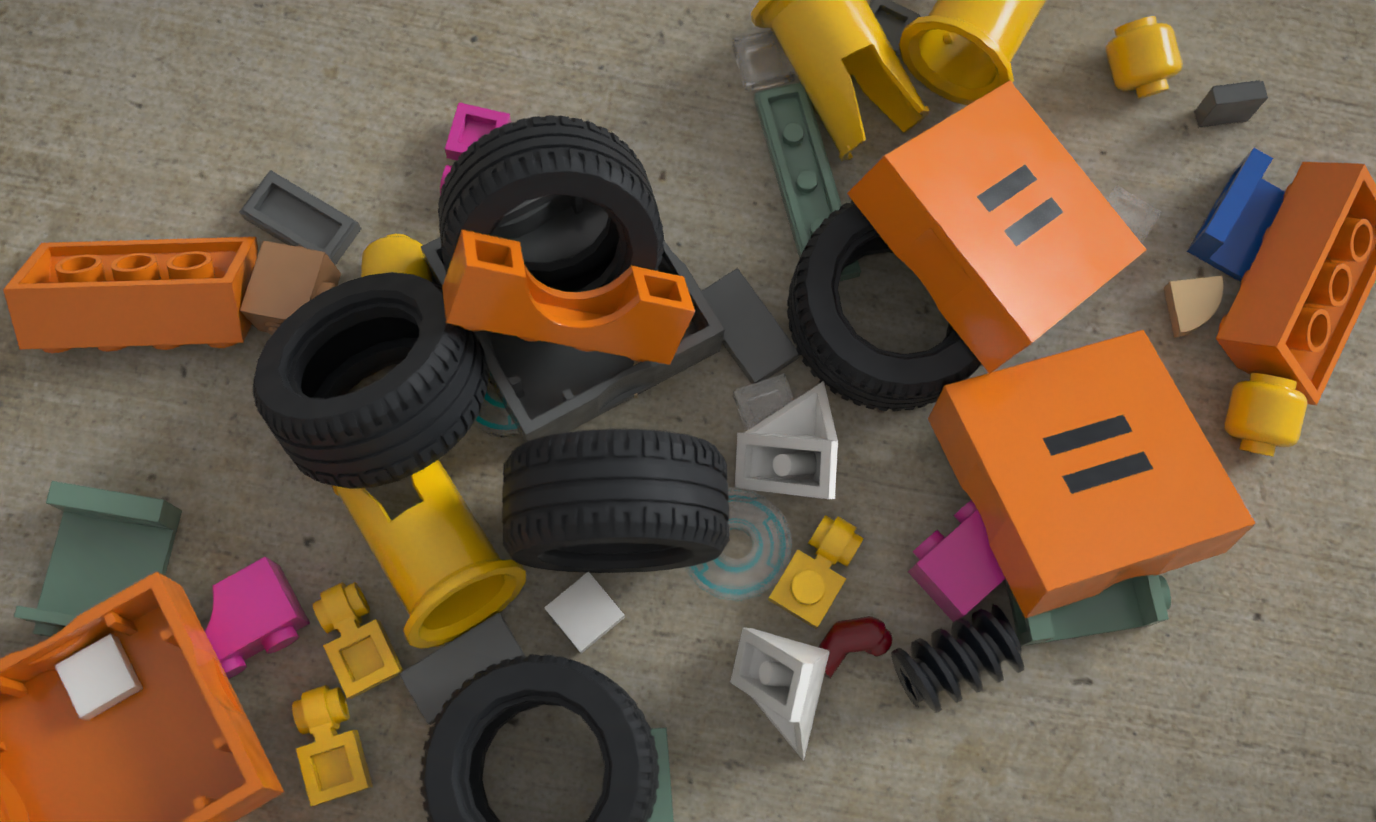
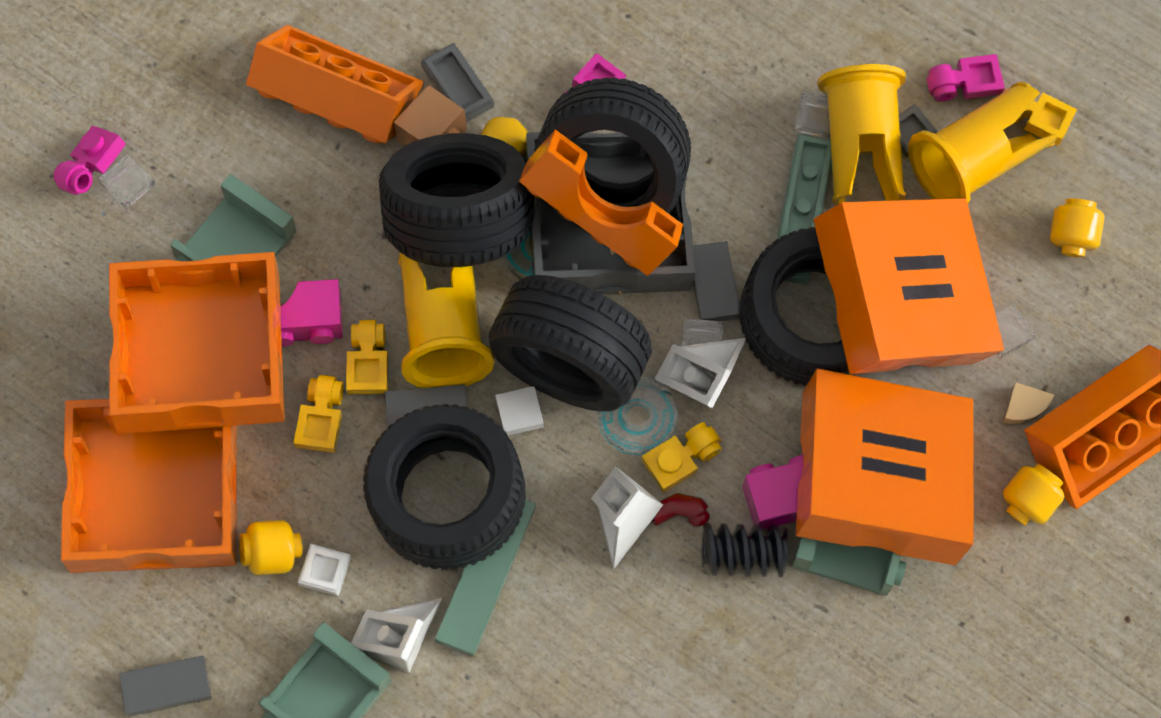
camera: 25 degrees right, 5 degrees down
(98, 677) = (207, 301): white tile -> none
(1230, 103) = (1121, 285): dark grey tile -> none
(1239, 218) = (1086, 360): blue panel -> none

